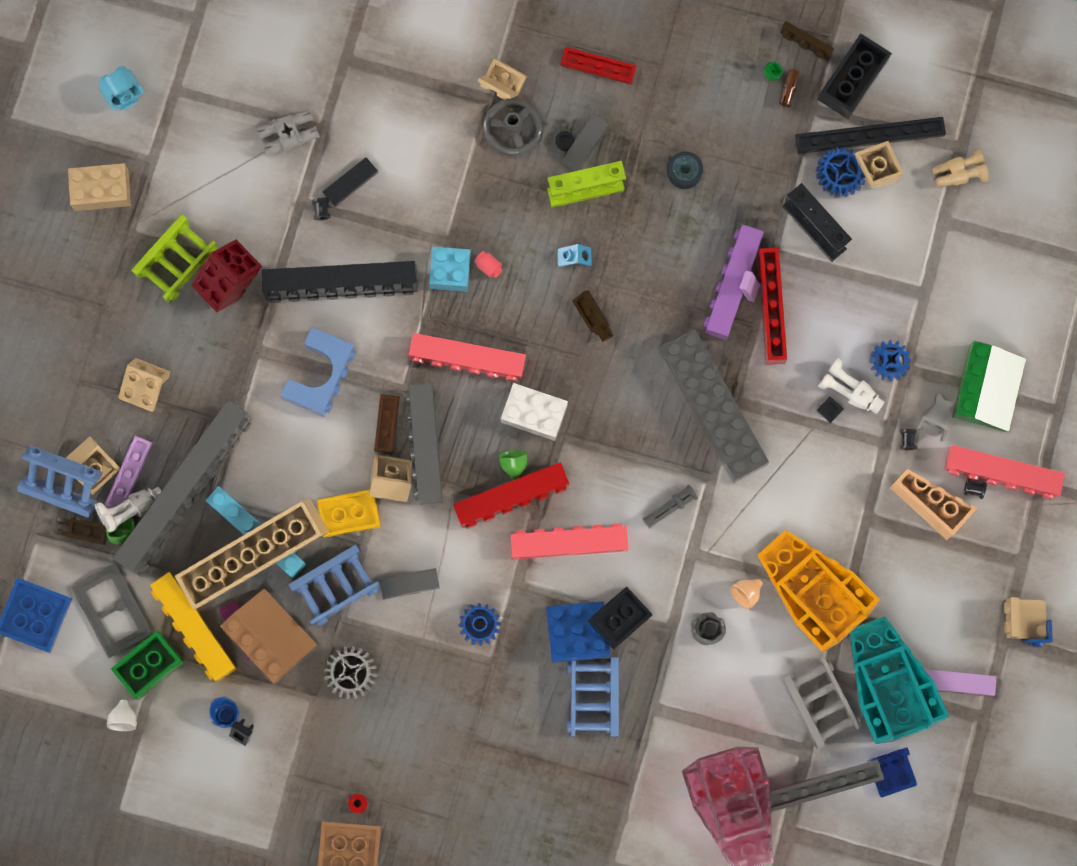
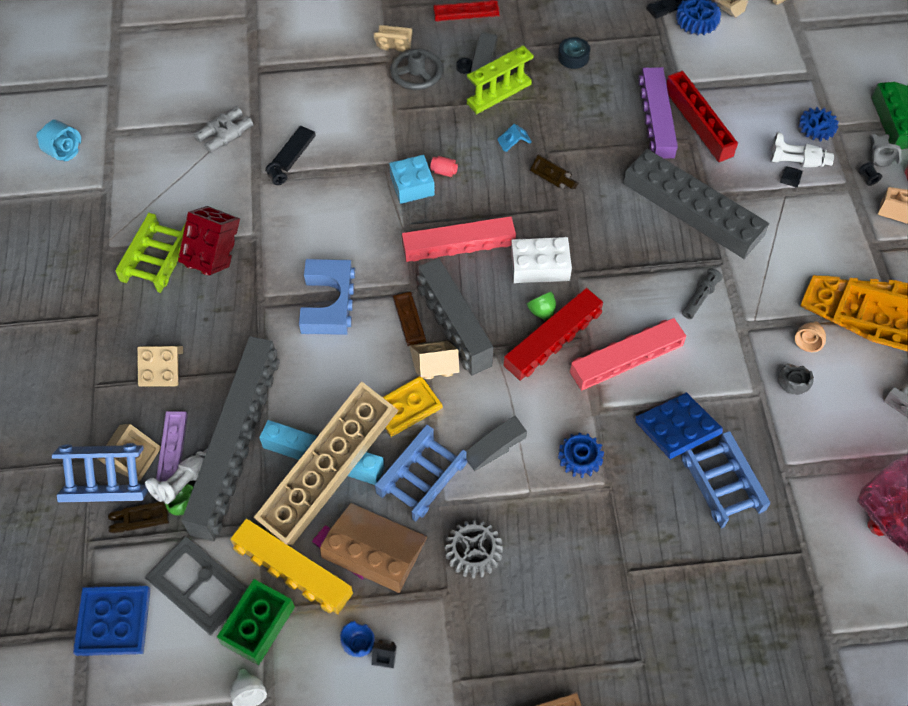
camera: 20 degrees left, 20 degrees down
(99, 187) = (62, 220): tan brick -> none
(339, 281) = (316, 215): black brick -> none
(364, 803) = (540, 687): red plate -> none
(620, 618) = (711, 397): black tile -> none
(749, 286) = (674, 106): lavender tile -> none
(816, 222) = (698, 58): black fence -> none

